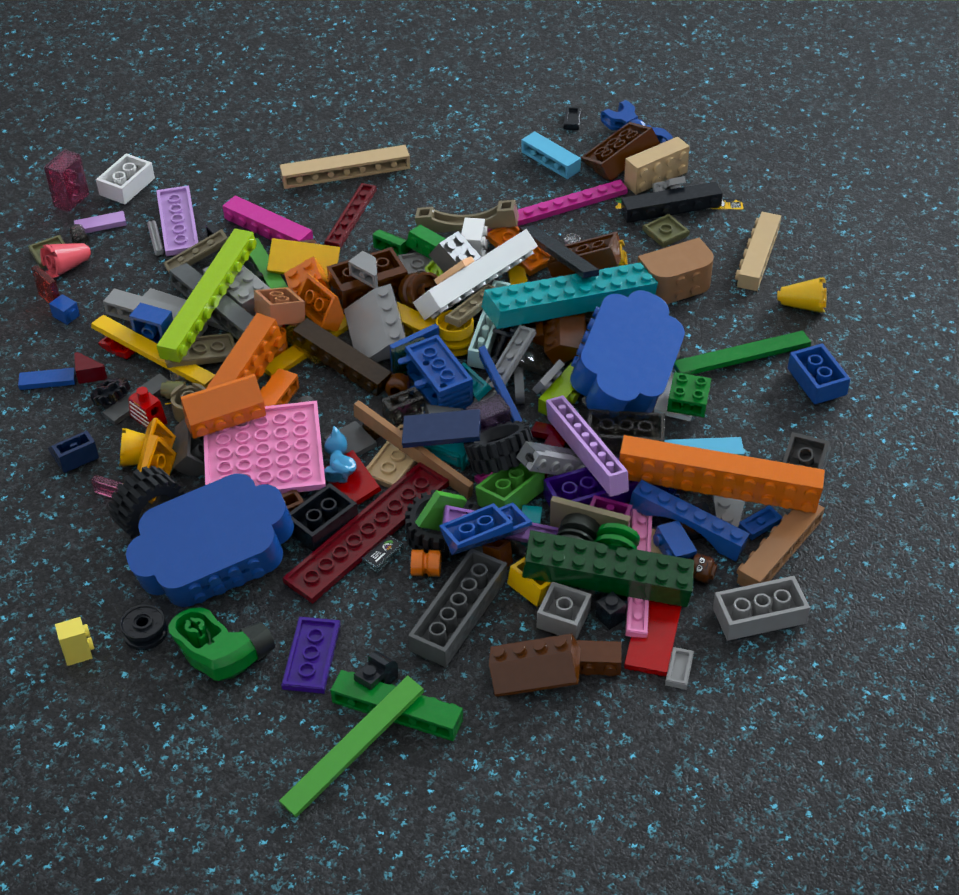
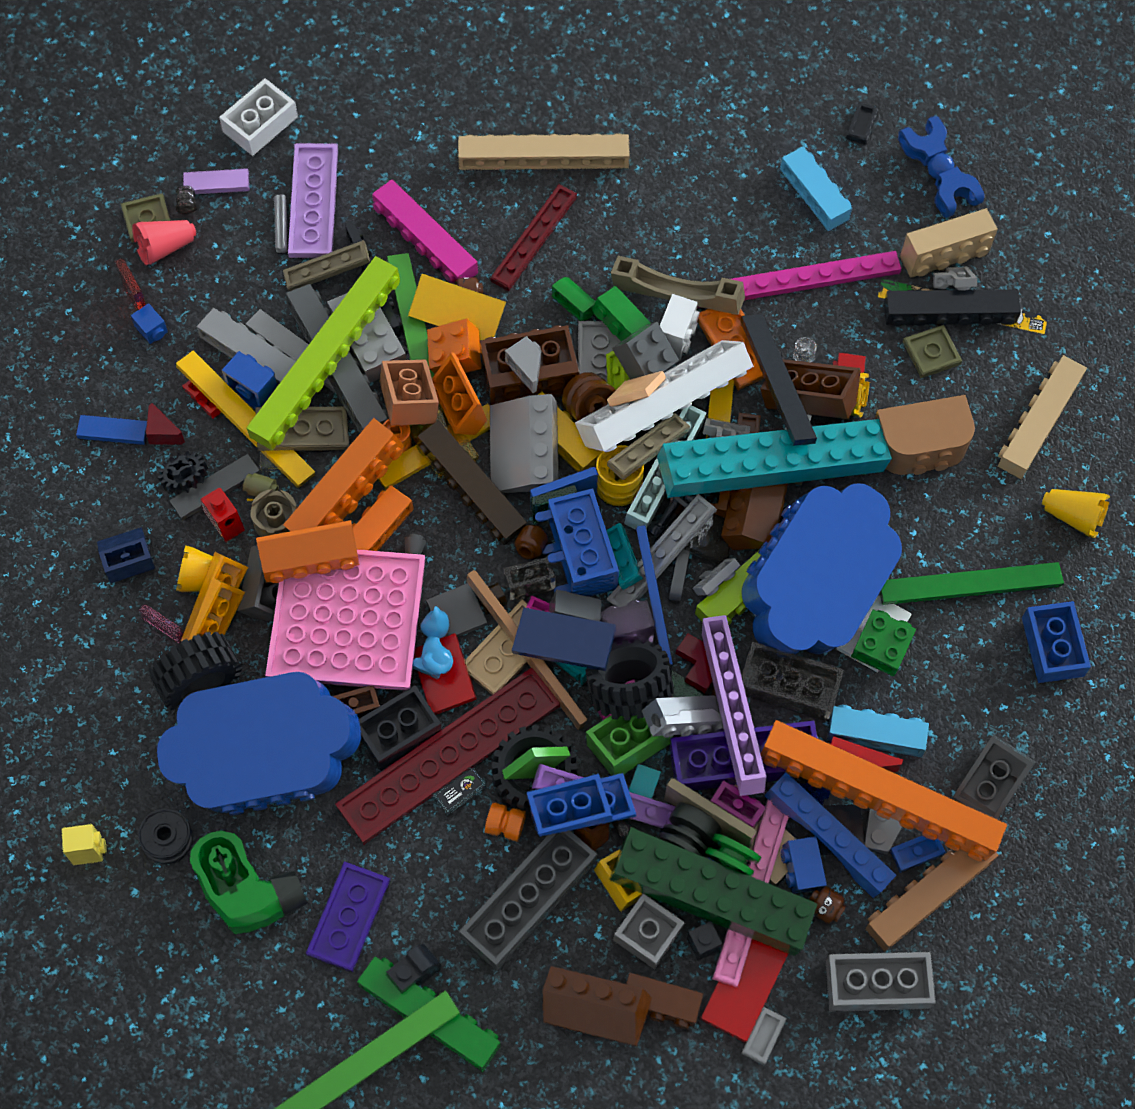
camera: 10 degrees right, 20 degrees up
(66, 180) = (182, 111): clear pink brick -> none
(610, 155) = (908, 204): reddish brown slope -> none

